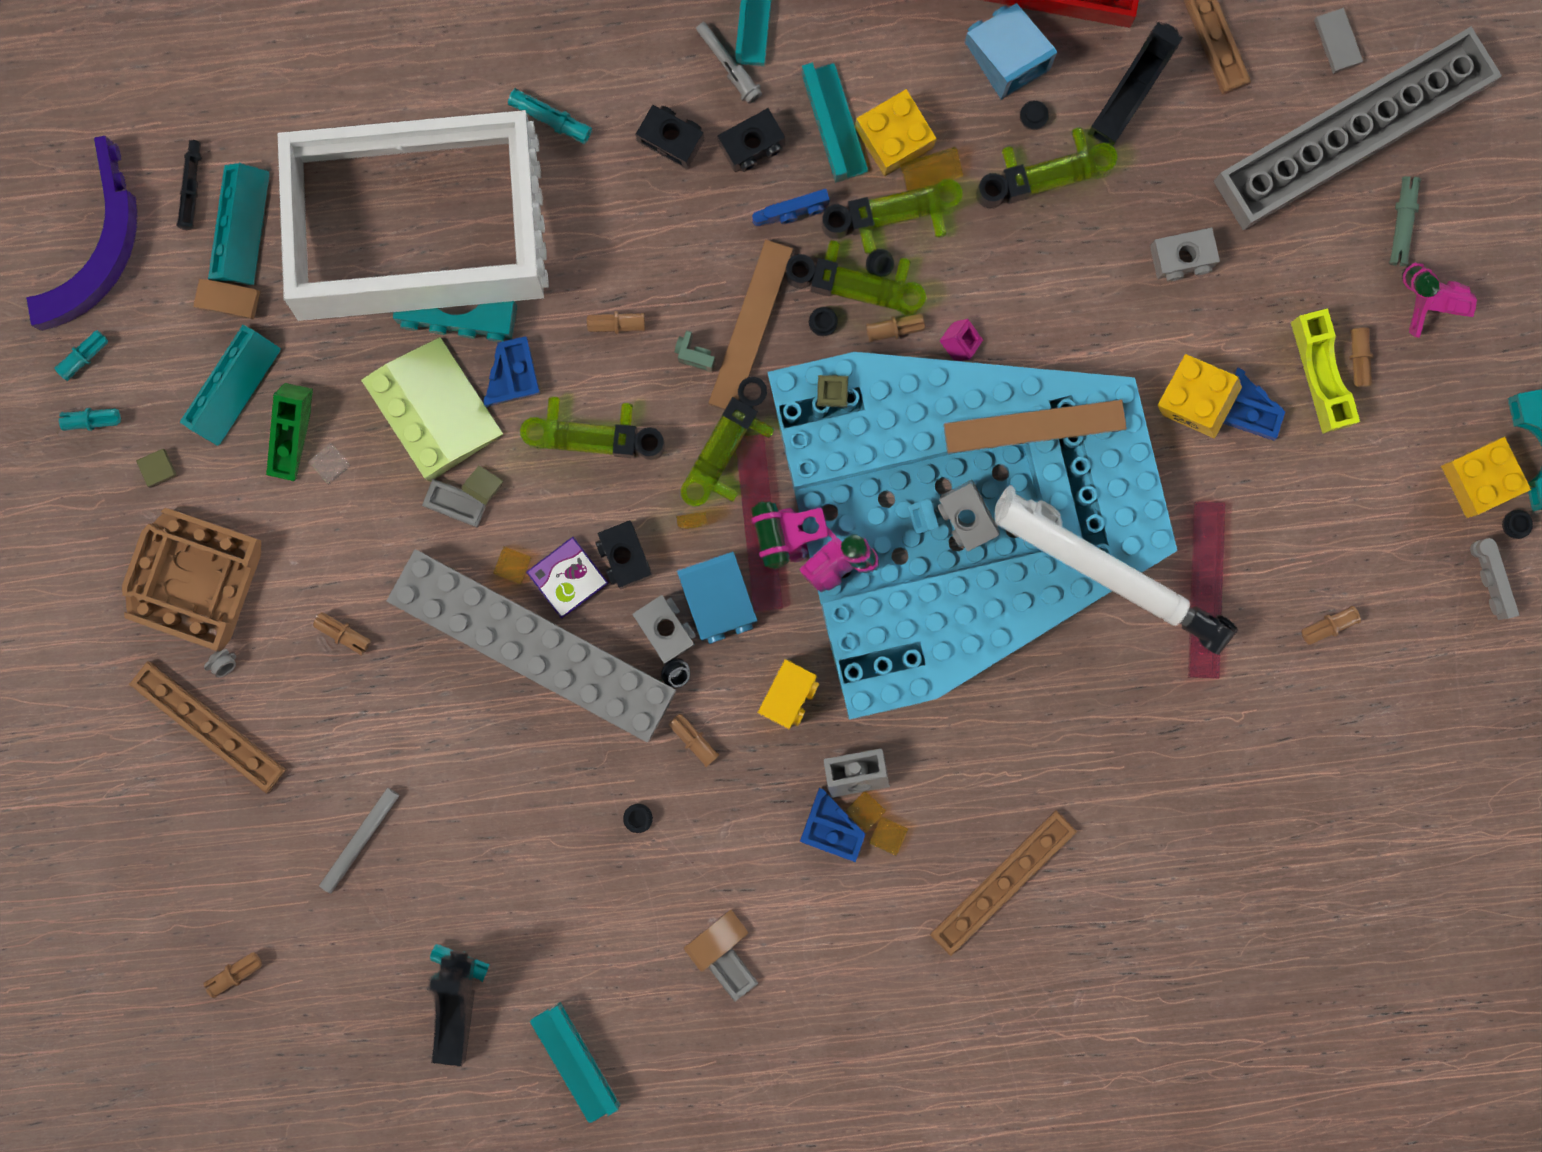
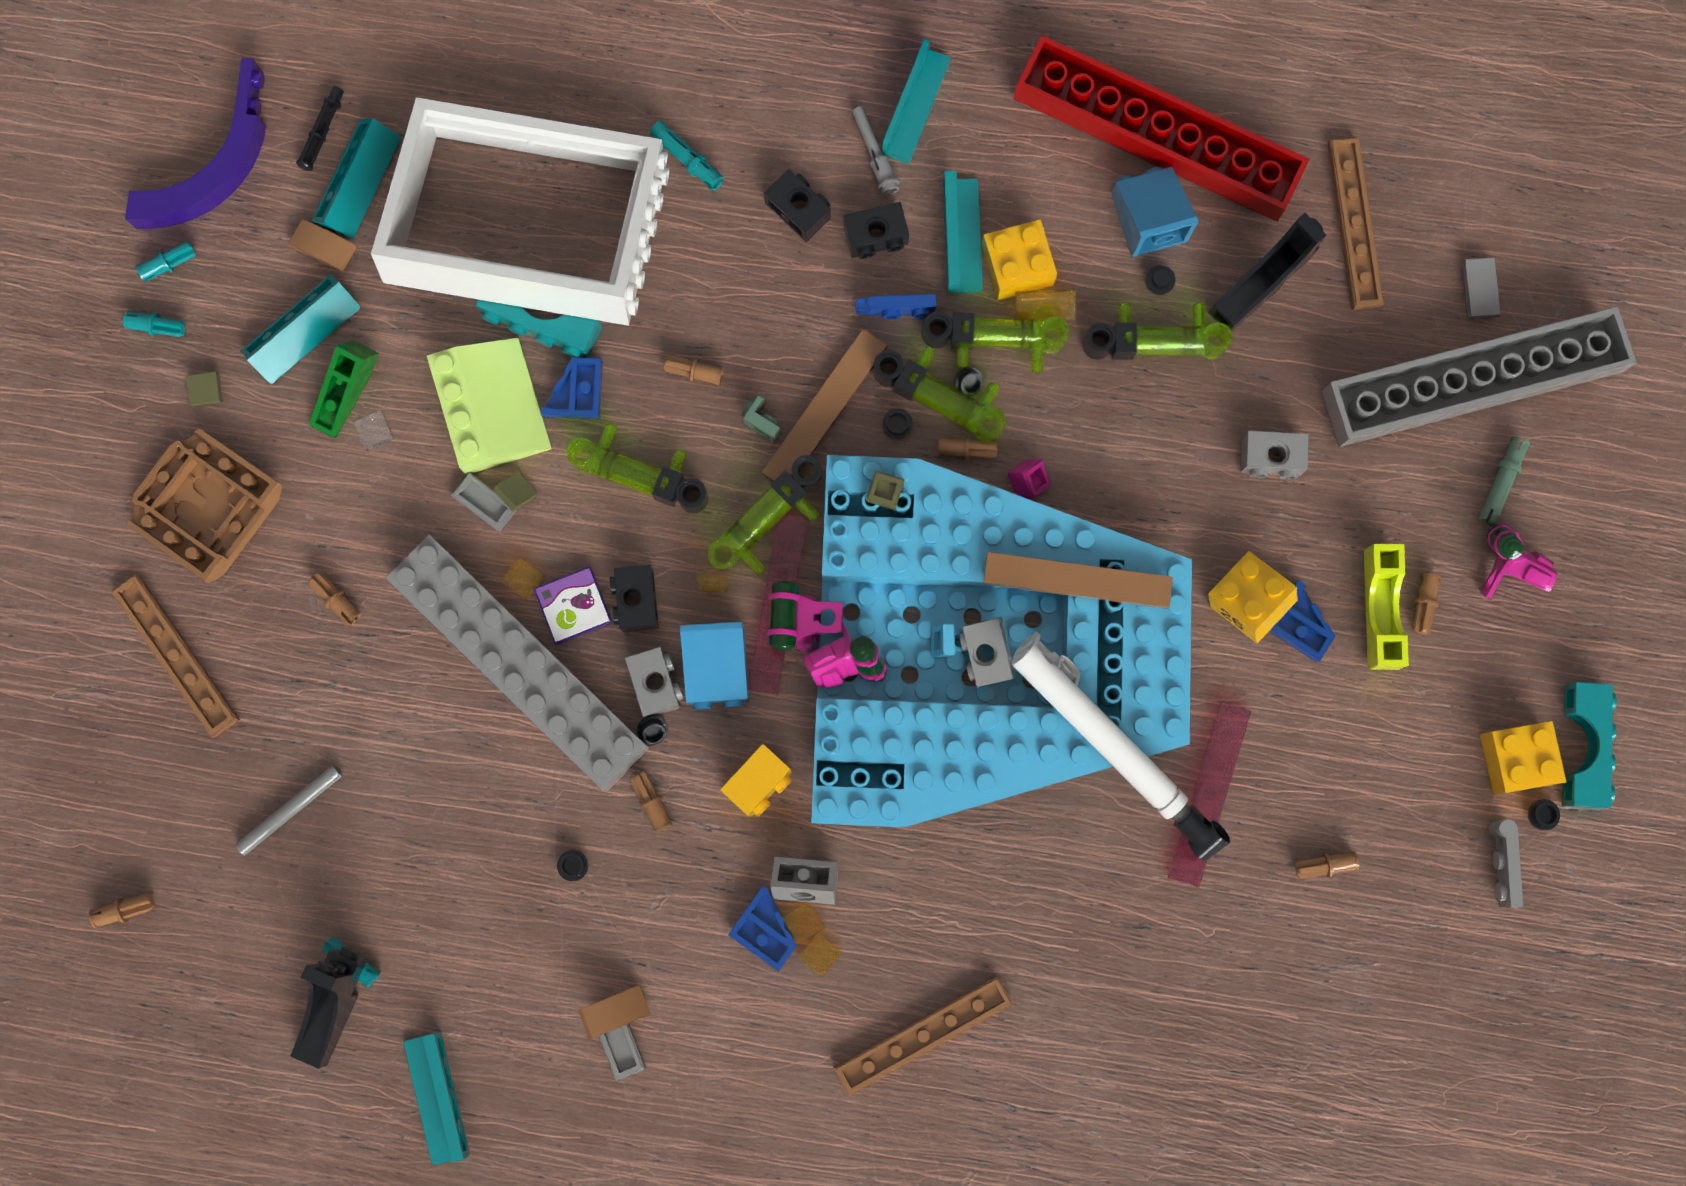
camera: 15 degrees right, 5 degrees down
(221, 663) = (206, 595): light grey plate -> none

